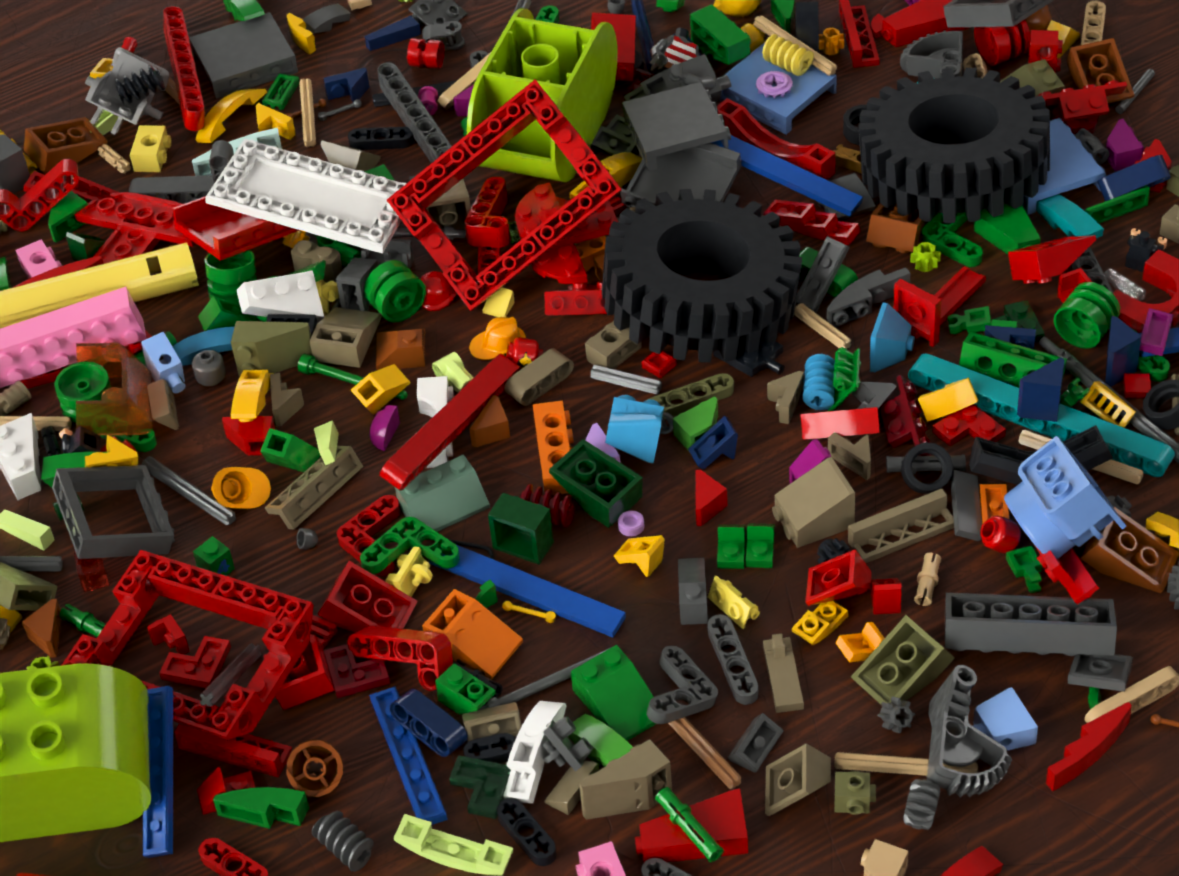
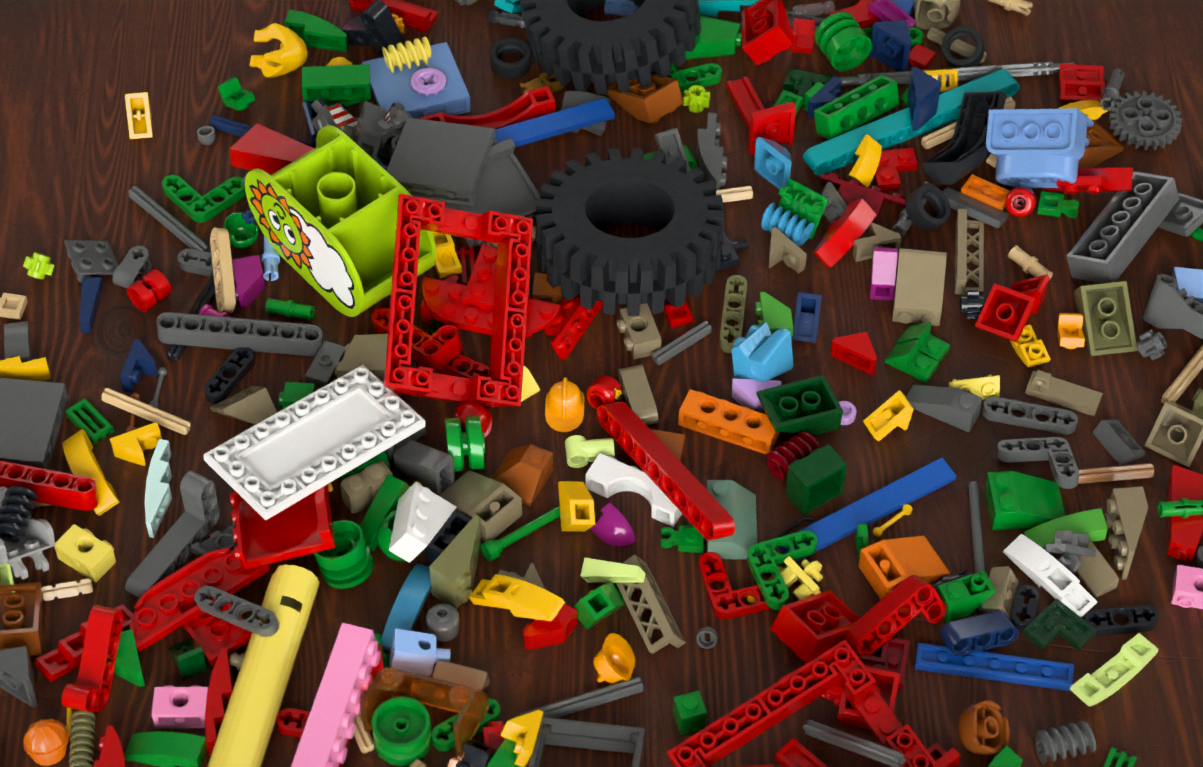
camera: 65 degrees left, 5 degrees up
(126, 240) = (238, 608): none -> dark grey beam
(221, 314) = (383, 586): green slope -> none
(807, 221) = (598, 142): red slope -> none
(819, 61) = (375, 48): tan axle -> none

